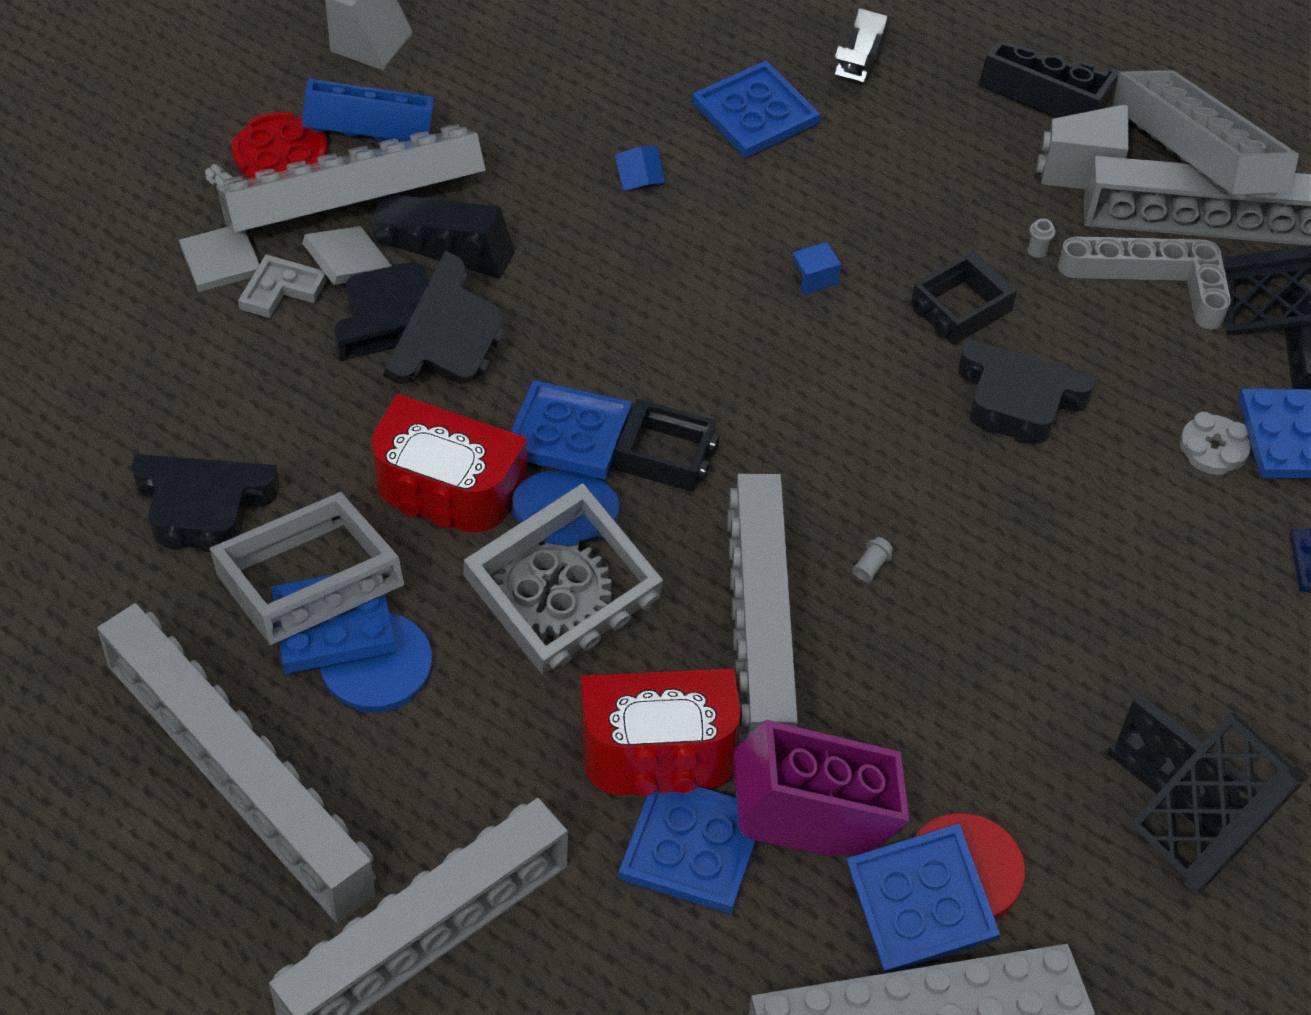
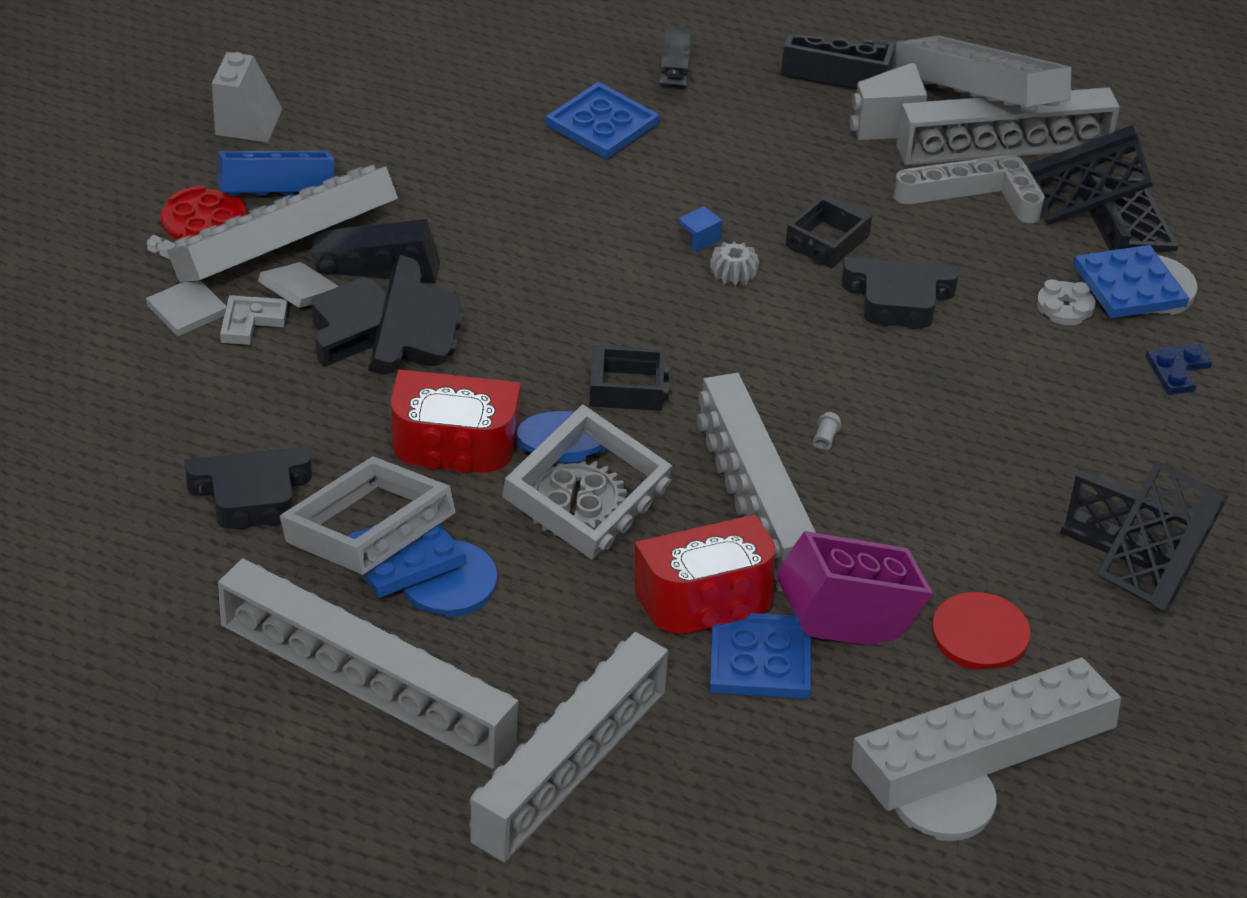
camera: 15 degrees left, 10 degrees down
(571, 428) = (547, 378): blue plate -> none
(639, 167) = (522, 178): blue panel -> none
(840, 319) = (734, 263): none -> light grey gear
(922, 899) = (957, 651): blue plate -> none
(1041, 233) = (875, 171): light grey pin -> none

